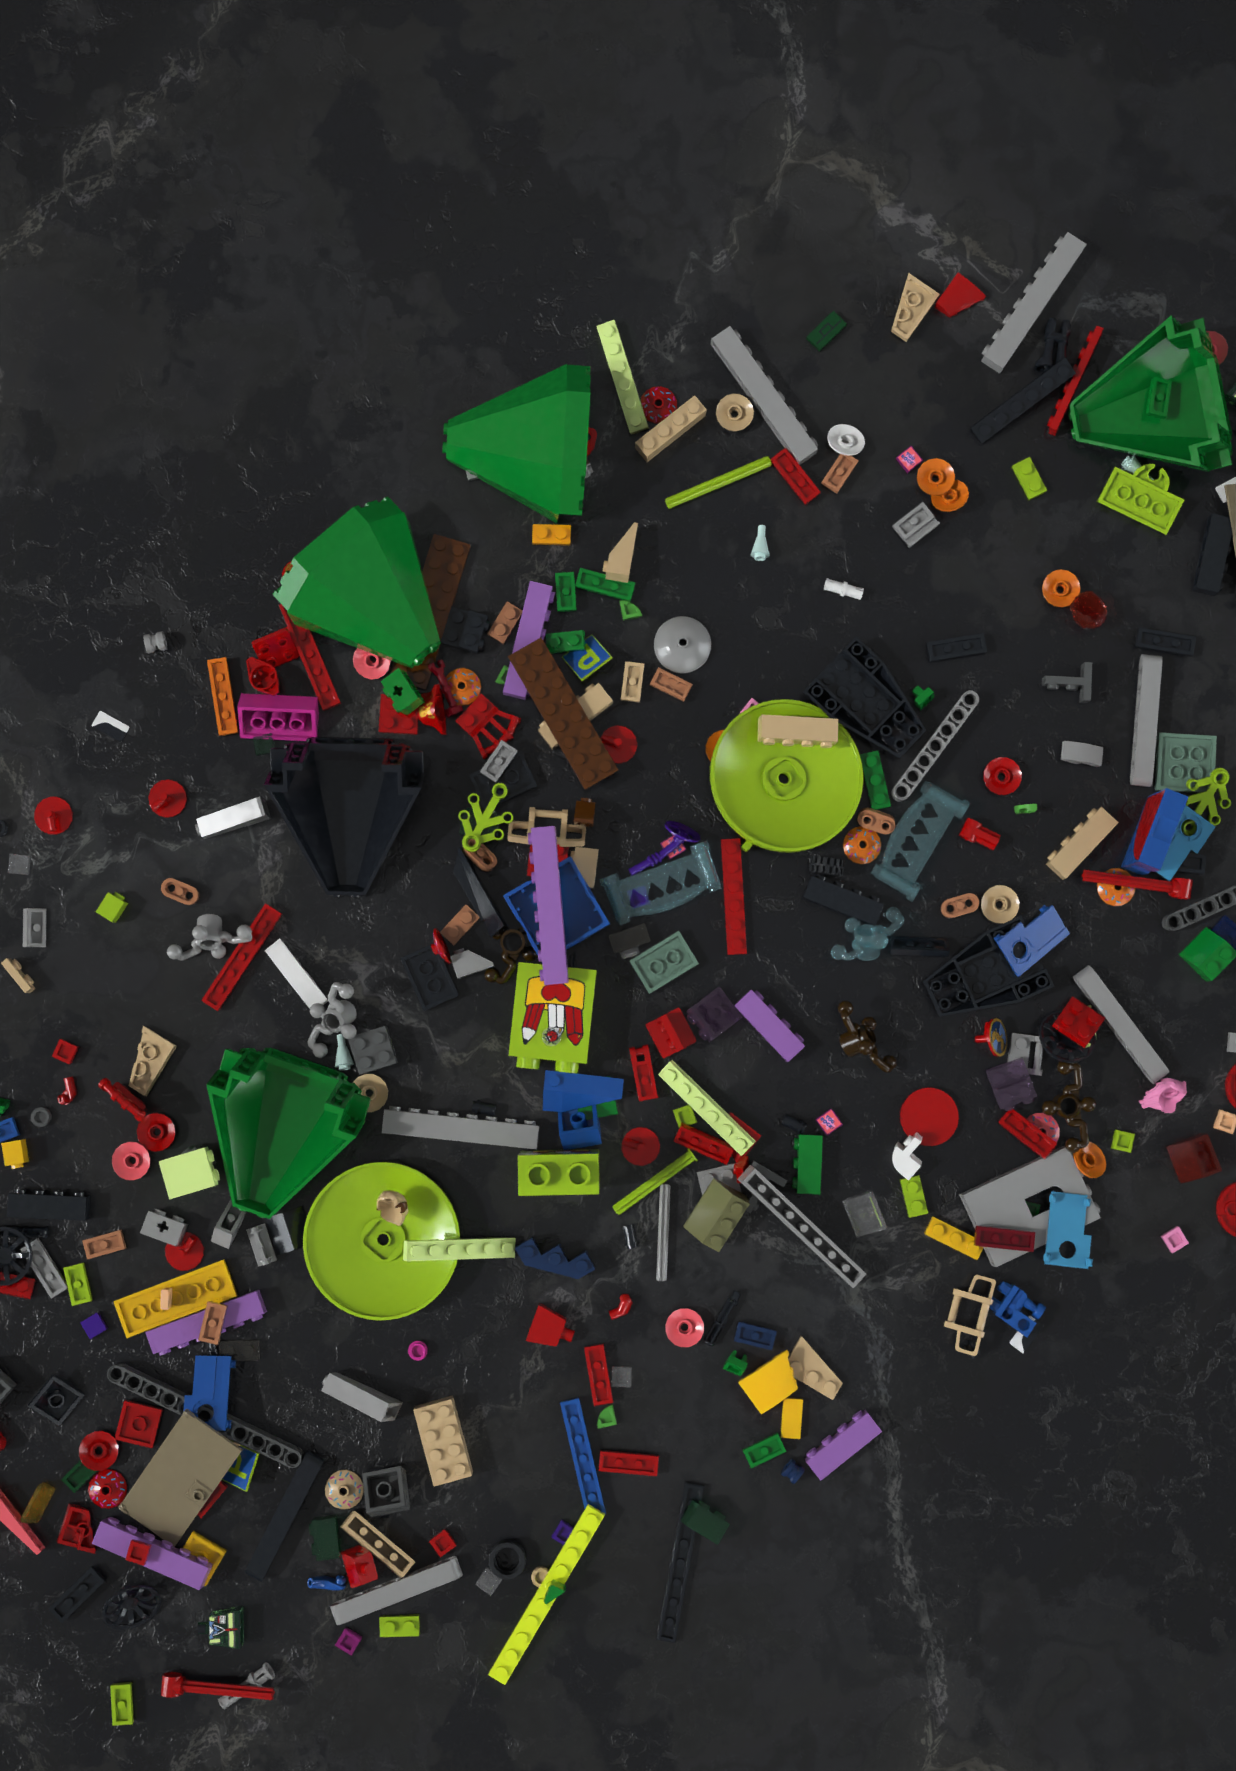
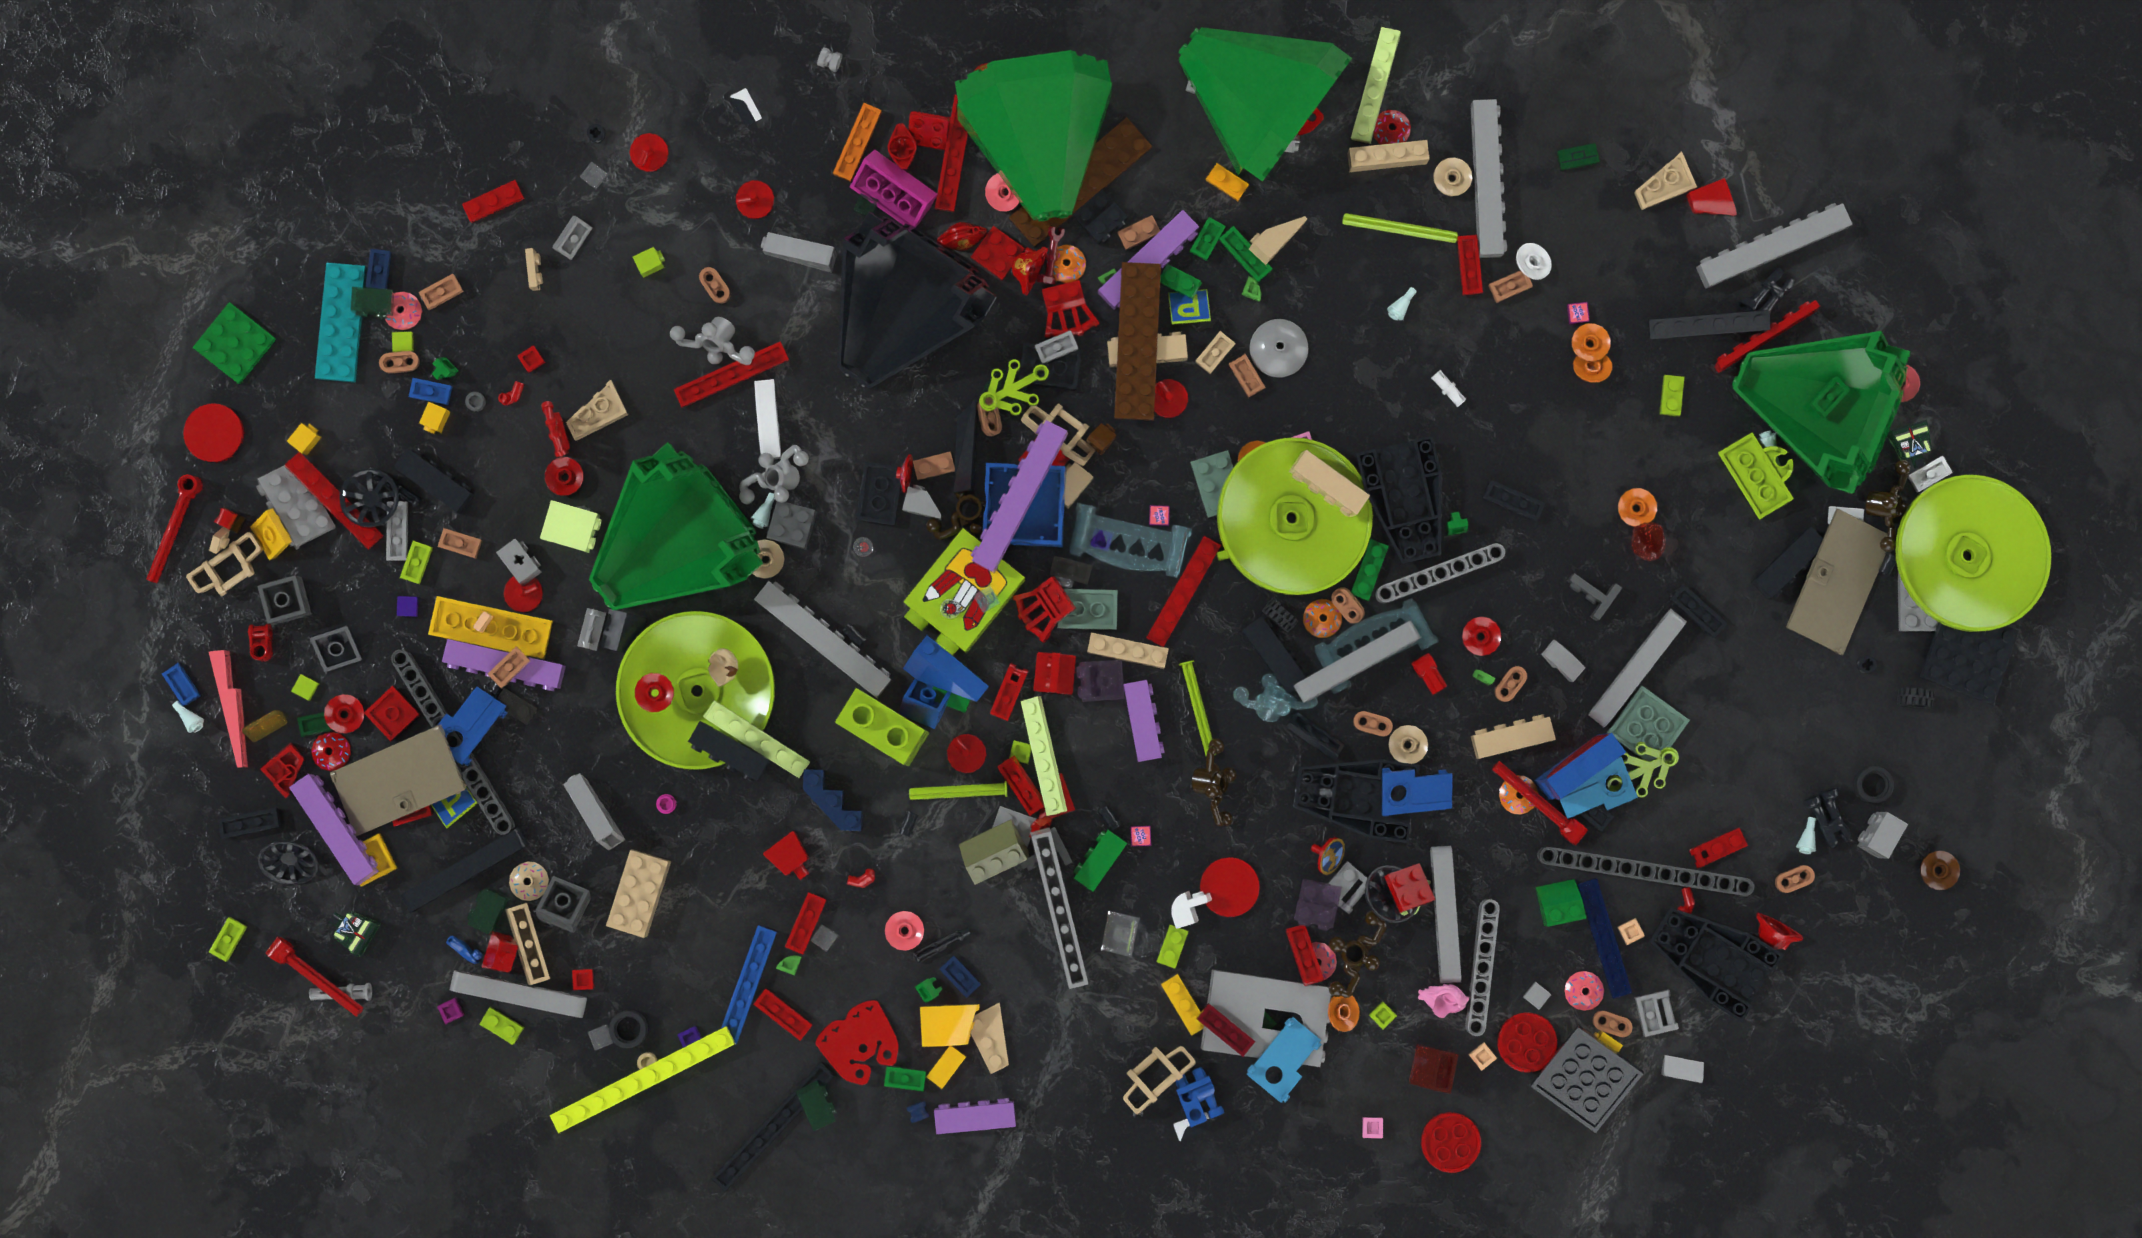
camera: 35 degrees right, 0 degrees up
(51, 1449) = (305, 687): none -> lime tile
(122, 1164) = (519, 482): coral dish -> none
(138, 1552) = (323, 819): red plate -> none
(228, 1226) = (574, 594): light grey slope -> none
(339, 1269) = (644, 690): none -> red dish
(360, 719) = (962, 236): none -> red hat
(402, 692) = (1012, 235): green brick -> none
(443, 1274) = (729, 751): none -> black brick
(444, 1030) = (863, 547): none -> clear tile
(554, 1590) = (652, 1078): green slope -> none
(577, 1009) = (986, 599): none -> clear light blue tile
(632, 973) = (1054, 601): none -> red plate
(663, 1232) = (938, 838): light grey axle -> none
(680, 835) = (1171, 509): dark purple dish -> none
(696, 788) = (1210, 476): none -> sand green plate
(697, 1438) = (853, 1032): none -> red piece
(719, 975) = (1127, 650): none -> tan brick
(806, 983) = (1197, 704): none -> lime axle
(915, 863) = (1357, 661): none -> light grey beam
(916, 524) = (1547, 373): light grey plate -> none
(1051, 800) = (1510, 684): none -> nougat plate
(1186, 1055) = (1486, 976): none -> light grey beam

